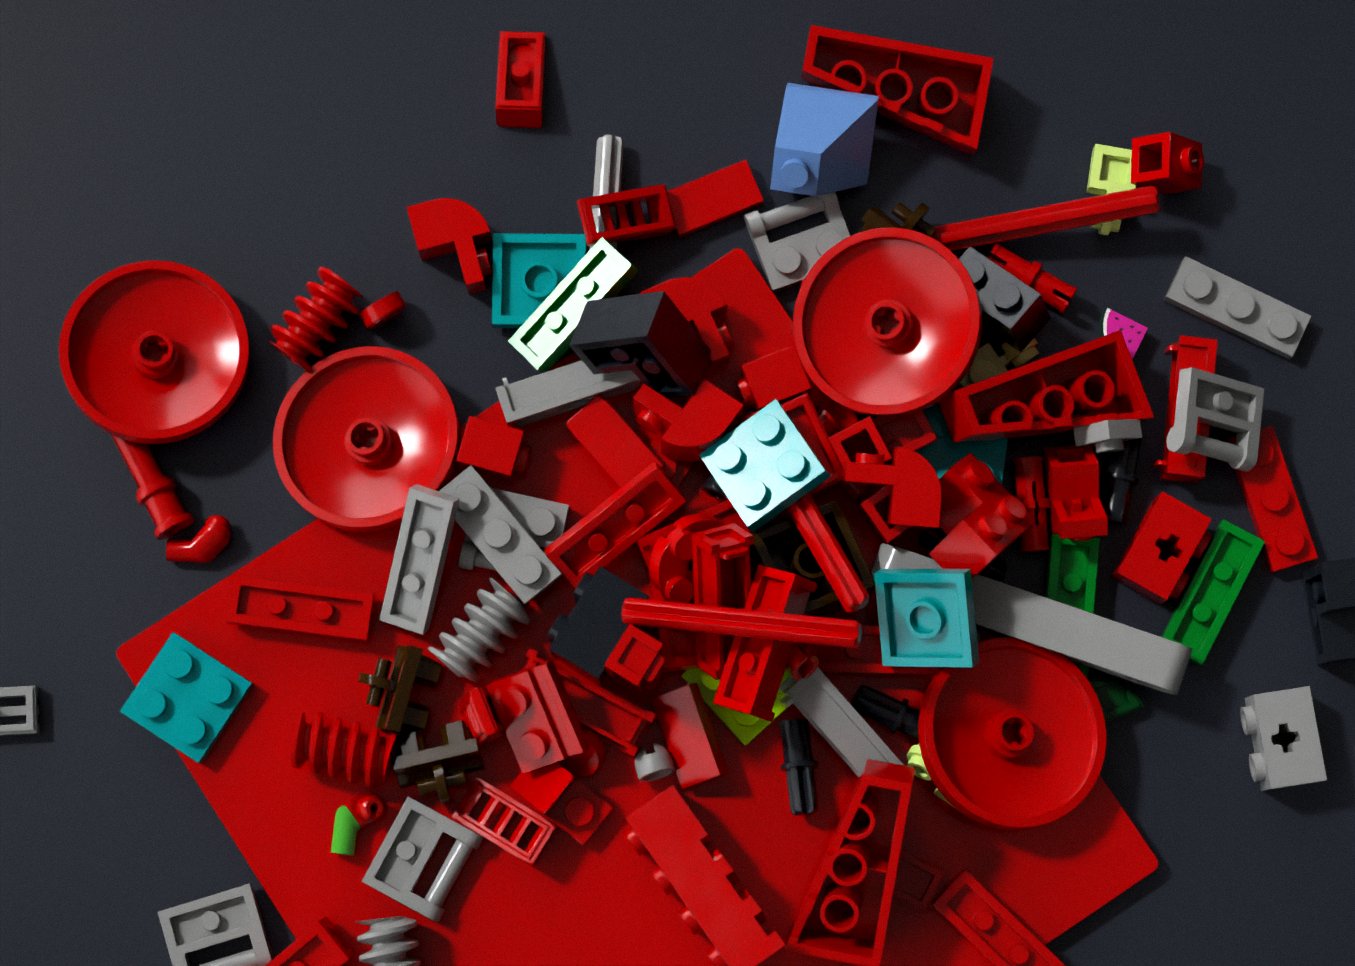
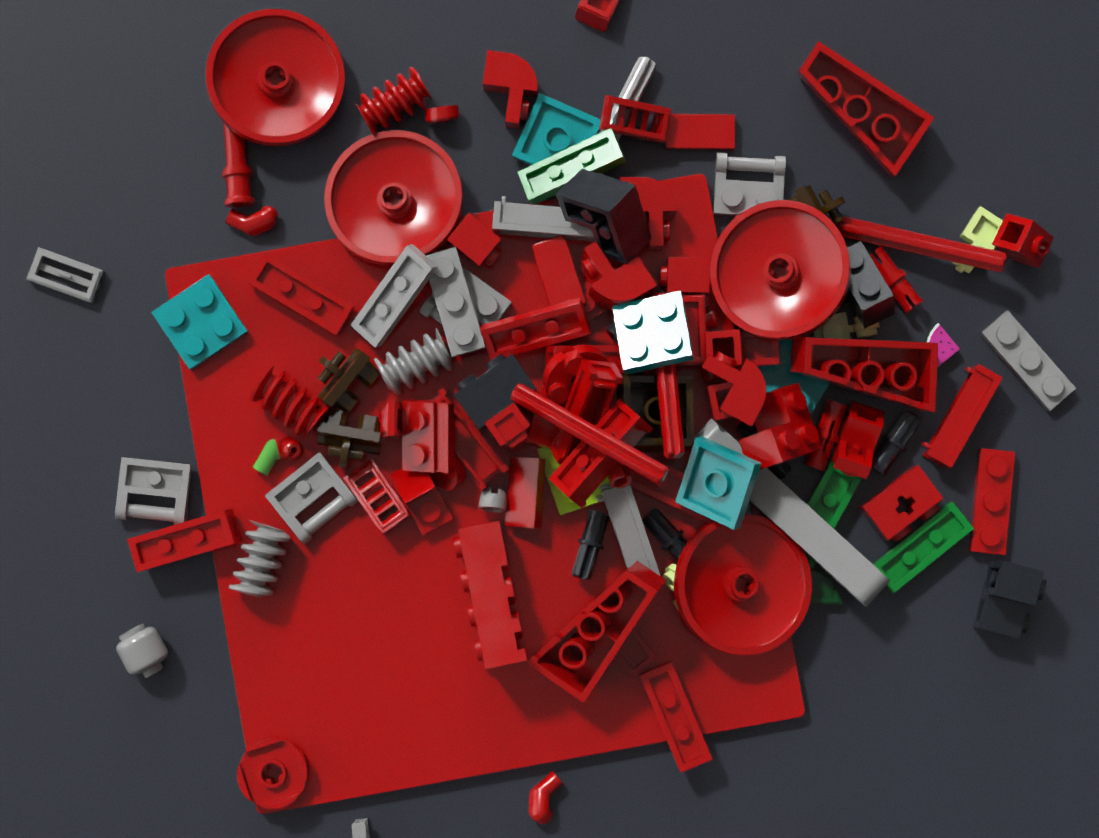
camera: 25 degrees right, 5 degrees up
(823, 140) = (792, 124): medium blue slope -> none
(1108, 435) = (898, 411): light grey plate -> none
(1220, 404) = (983, 422): light grey plate -> none
(1291, 714) = (940, 653): light grey brick -> none

